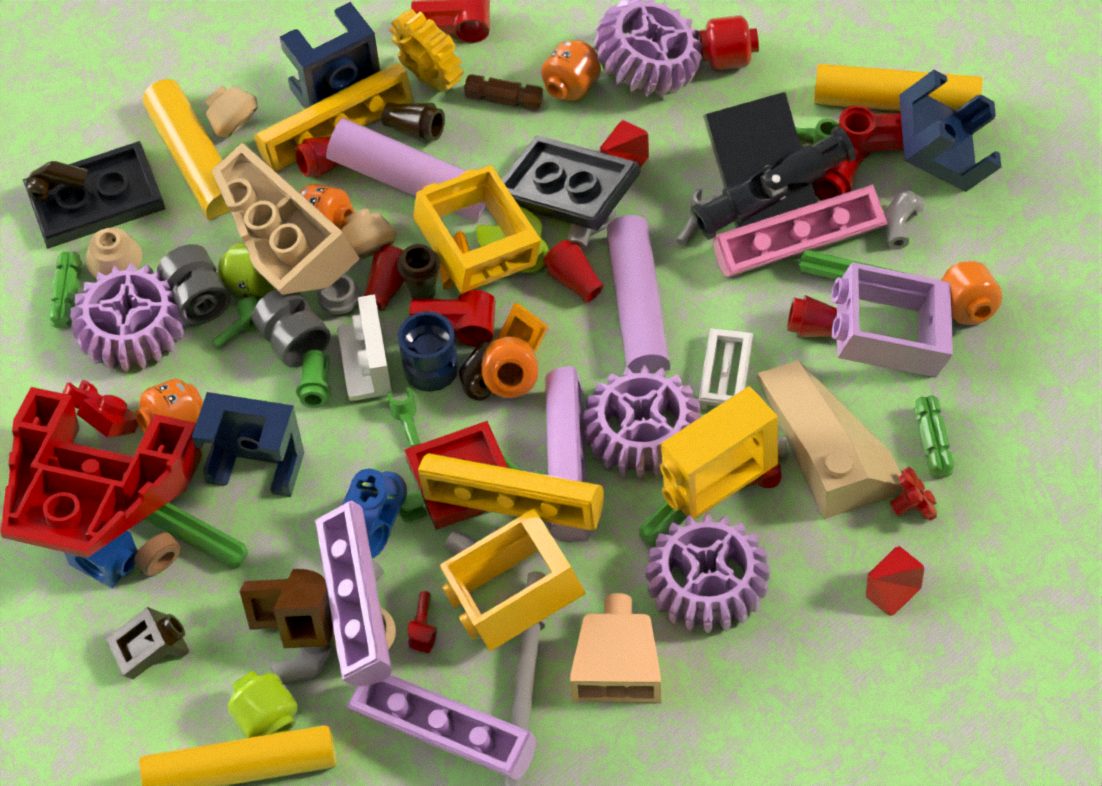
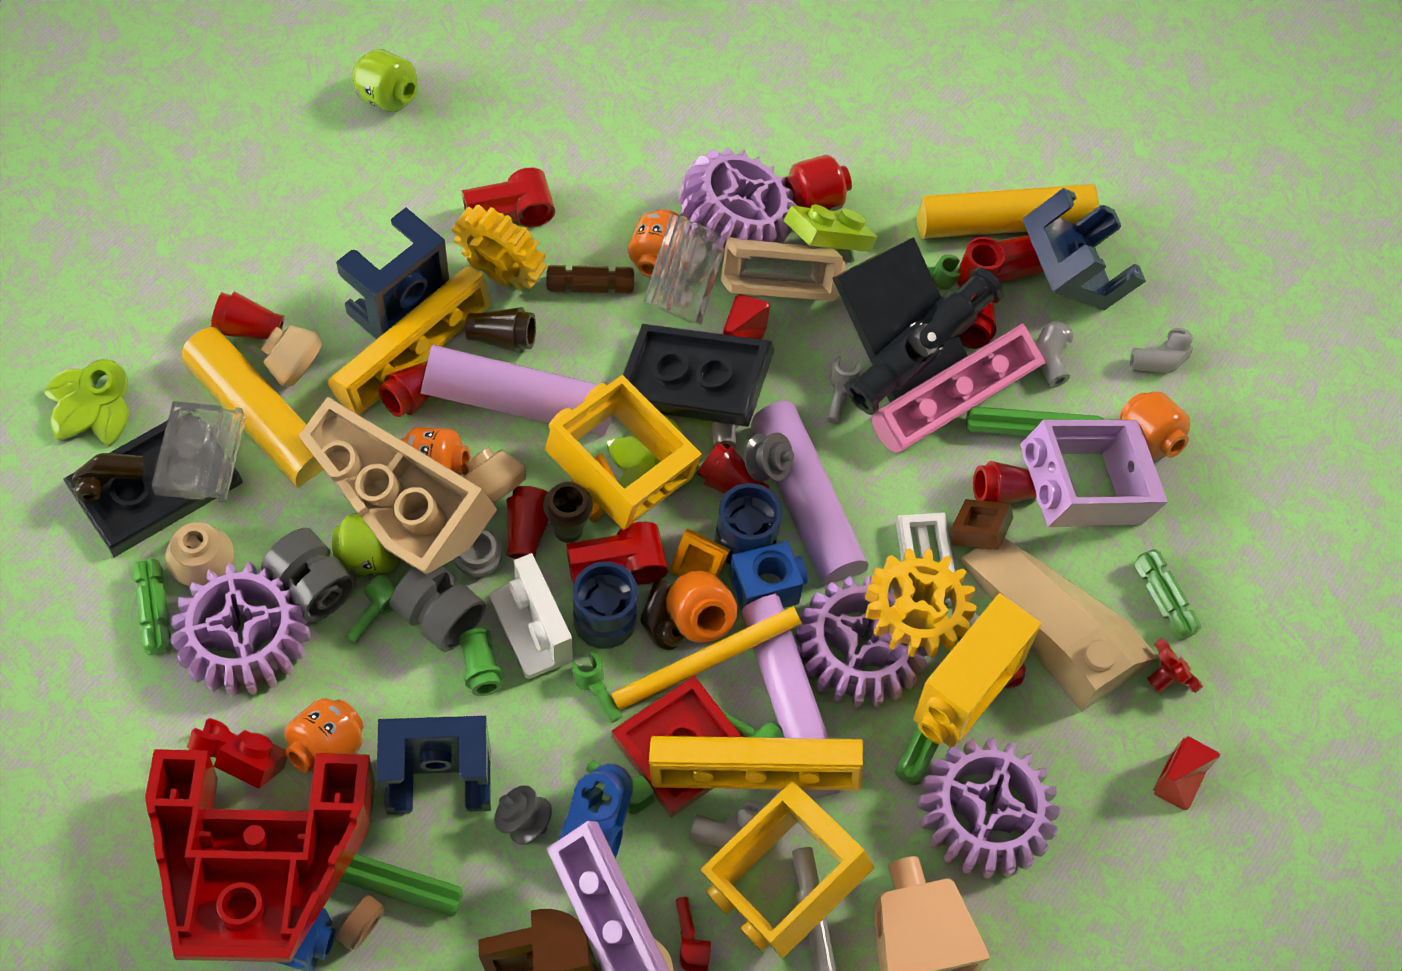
camera: 25 degrees left, 5 degrees up
(58, 126) = (86, 406): none -> lime plate
(132, 173) = (198, 451): none -> clear plate
(199, 75) = (243, 317): none -> red cone
(311, 499) = (523, 814): none -> dark grey wheel
(501, 407) = (706, 658): none -> yellow piece
(570, 310) = (748, 519): none -> dark blue wheel
(578, 341) = (771, 559): none -> blue brick
(582, 93) = (685, 269): none -> clear plate
(604, 256) = (768, 457): none -> dark grey wheel
(666, 105) = (781, 269): none -> tan window
(691, 390) = (920, 608): none -> yellow gear
(724, 79) = (830, 228): none -> lime plate
(781, 347) = (982, 524): none -> reddish brown plate
(1007, 240) = (1167, 356): none -> light grey arm

